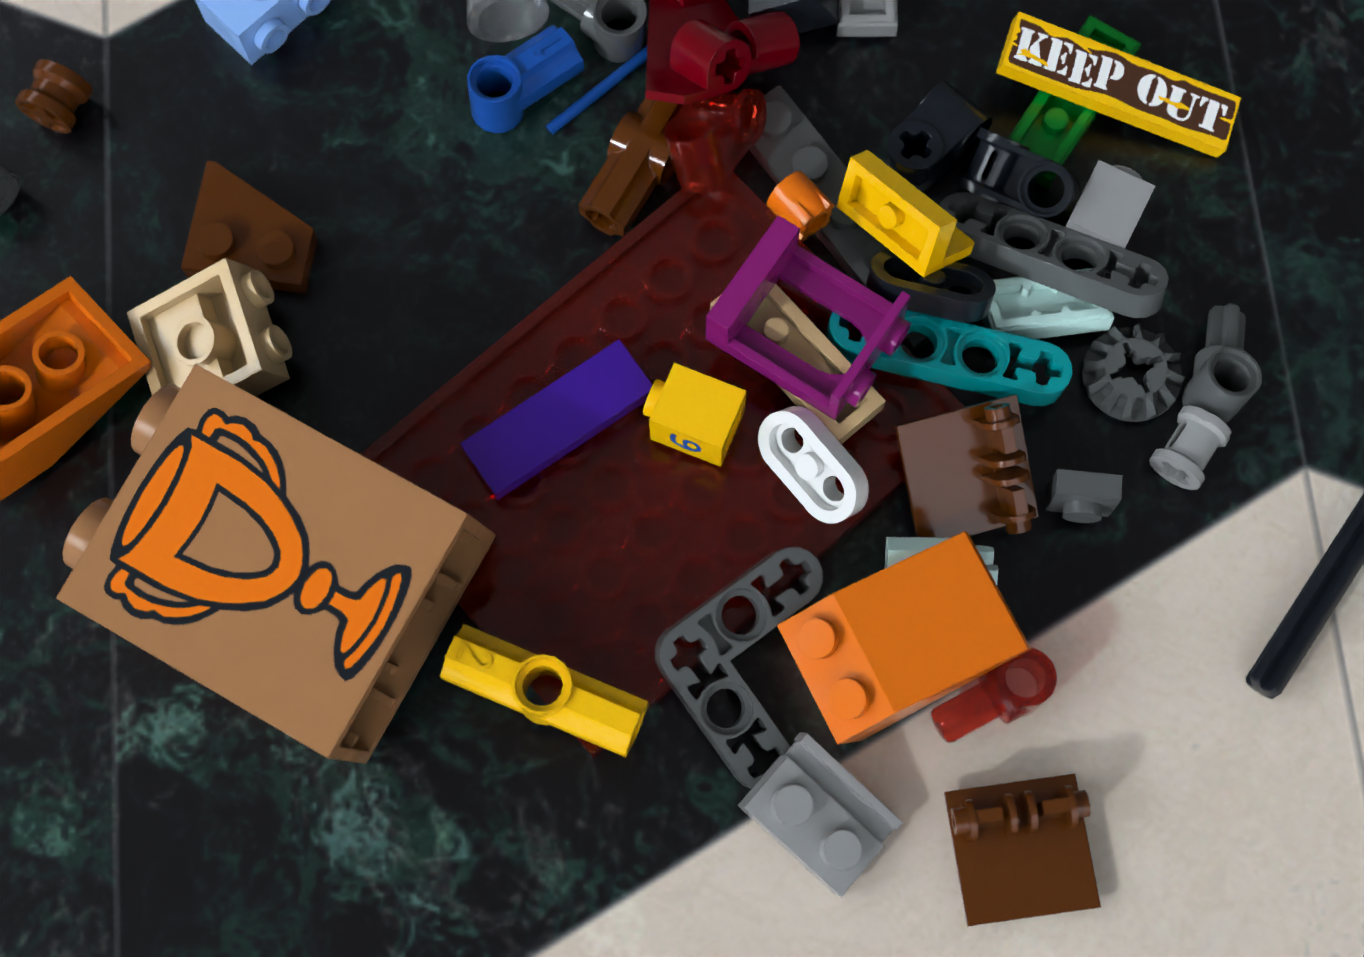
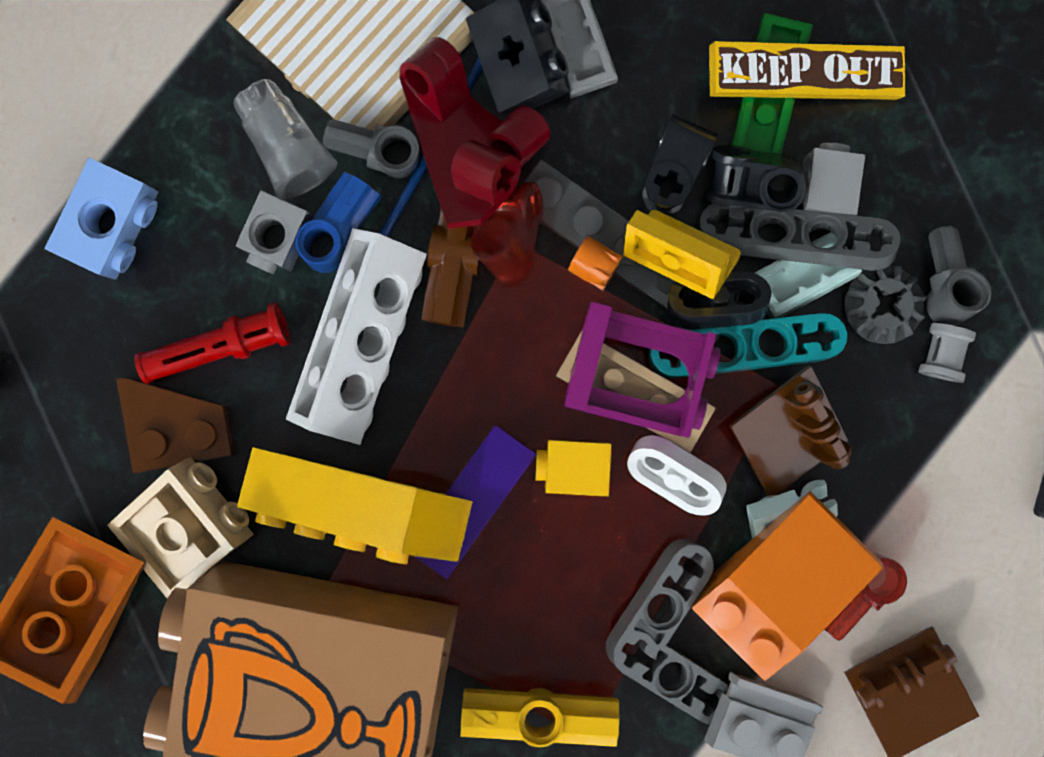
camera: 20 degrees left, 15 degrees up
(360, 161) = (239, 343): none -> red pin
(425, 250) = (334, 350): none -> white brick
(426, 367) = (354, 508): none -> yellow wedge
(446, 41) = (264, 214): none -> light grey brick
(1083, 495) = (880, 420): dark grey plate -> none

